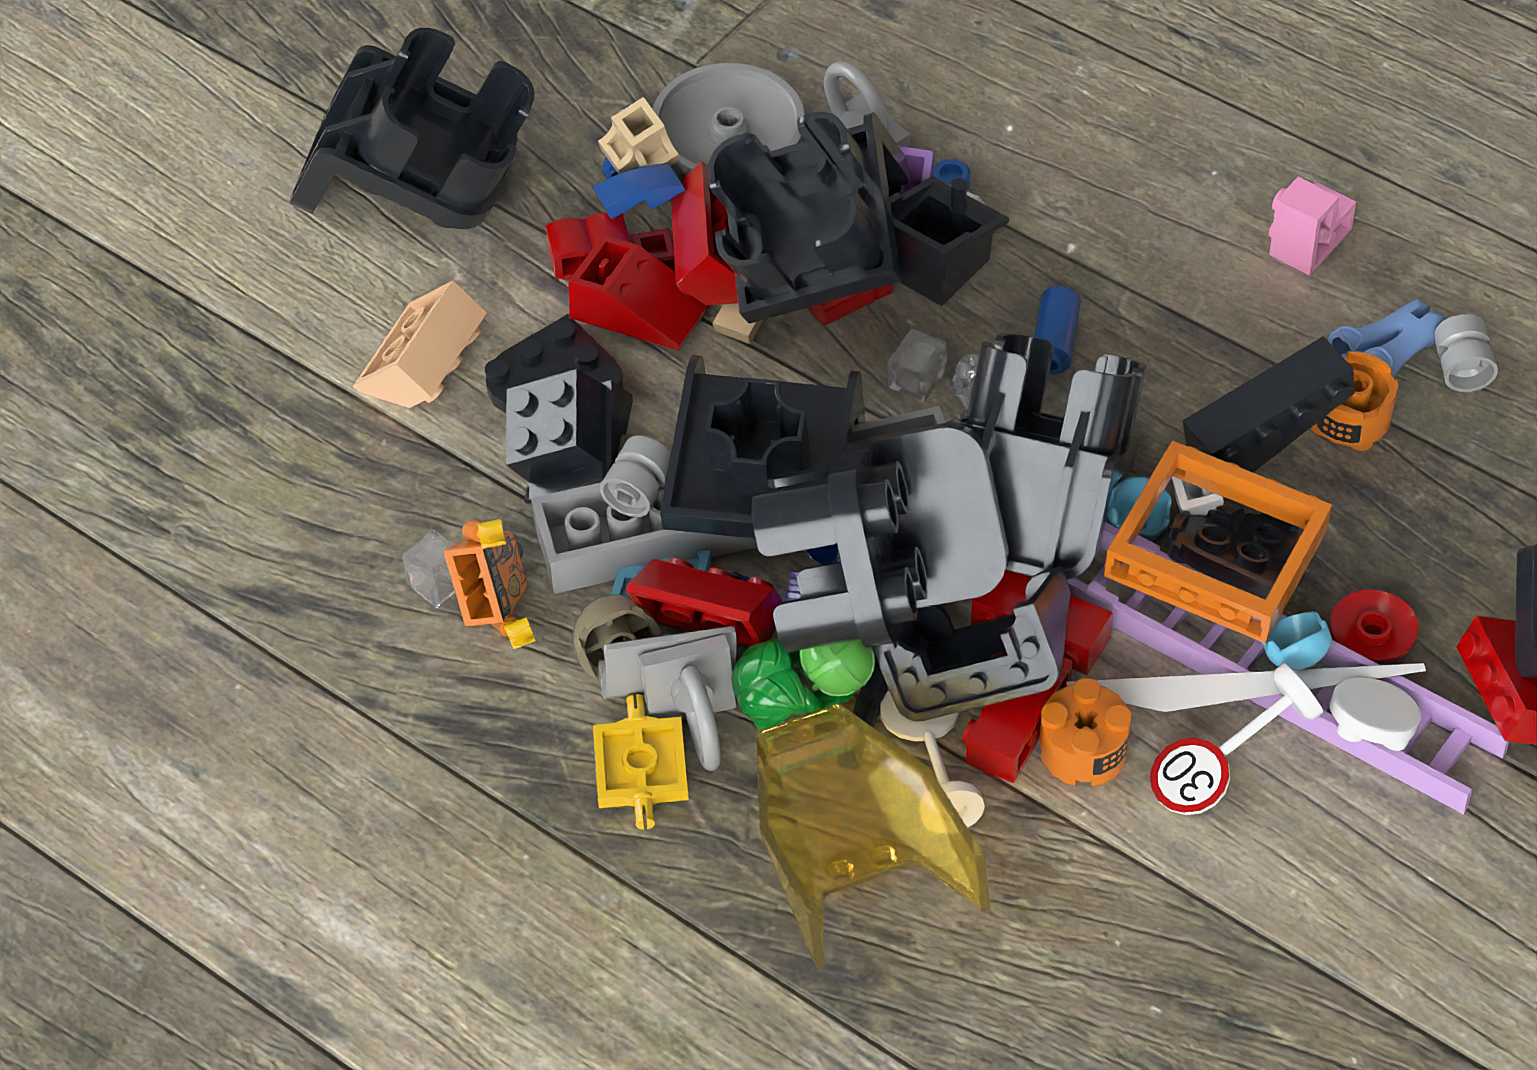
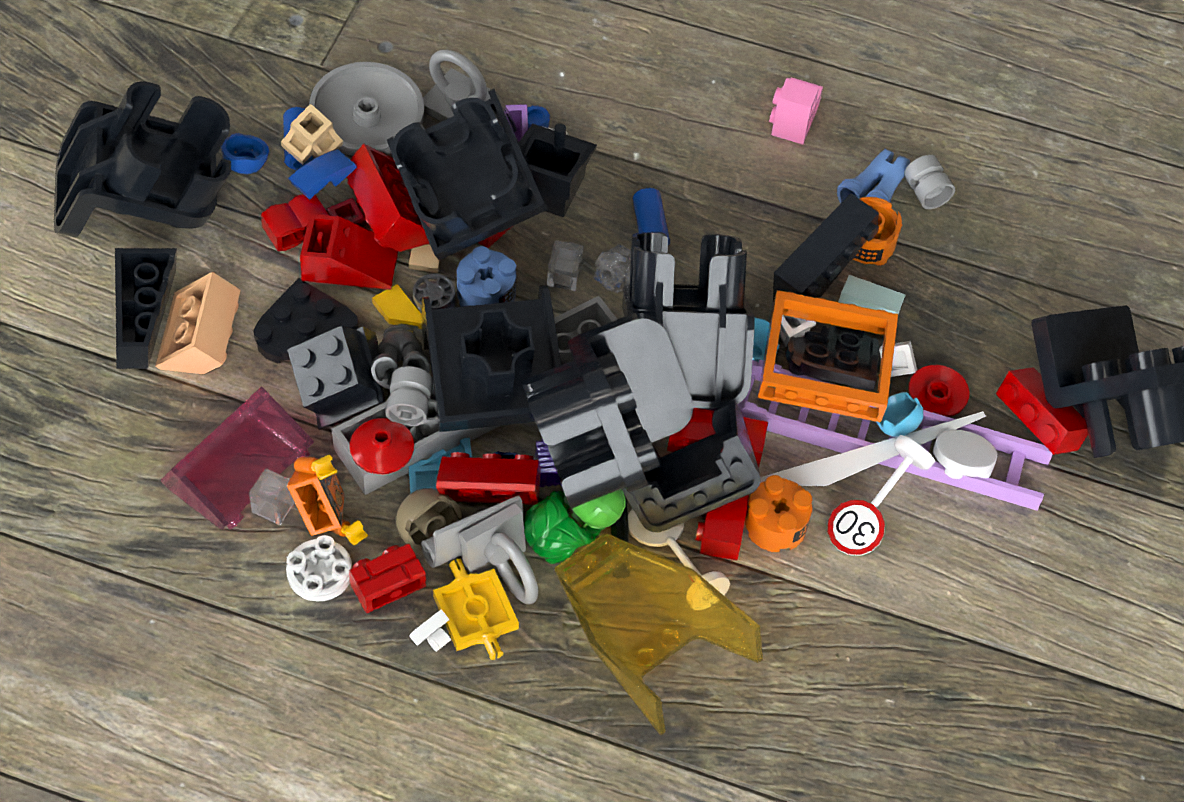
camera: 25 degrees left, 5 degrees up
(358, 302) = (141, 297): none -> black wedge
(386, 516) = (231, 459): none -> clear pink windscreen
(463, 670) = (319, 569): none -> white tile
(541, 697) = (387, 577): none -> red brick
(556, 160) = (245, 159): none -> blue helmet
(573, 773) = (432, 631): none -> white tile
(585, 532) = (381, 456): none -> red dish
(654, 420) = (397, 345): none -> dark grey piece
(671, 370) = (397, 307): none -> yellow tile
(732, 363) = (440, 292): none -> flat silver wheel
(804, 354) = (486, 278): none -> medium blue brick
(1316, 478) = (870, 295): none -> light aqua brick
(1331, 573) = (903, 359): none -> white tile

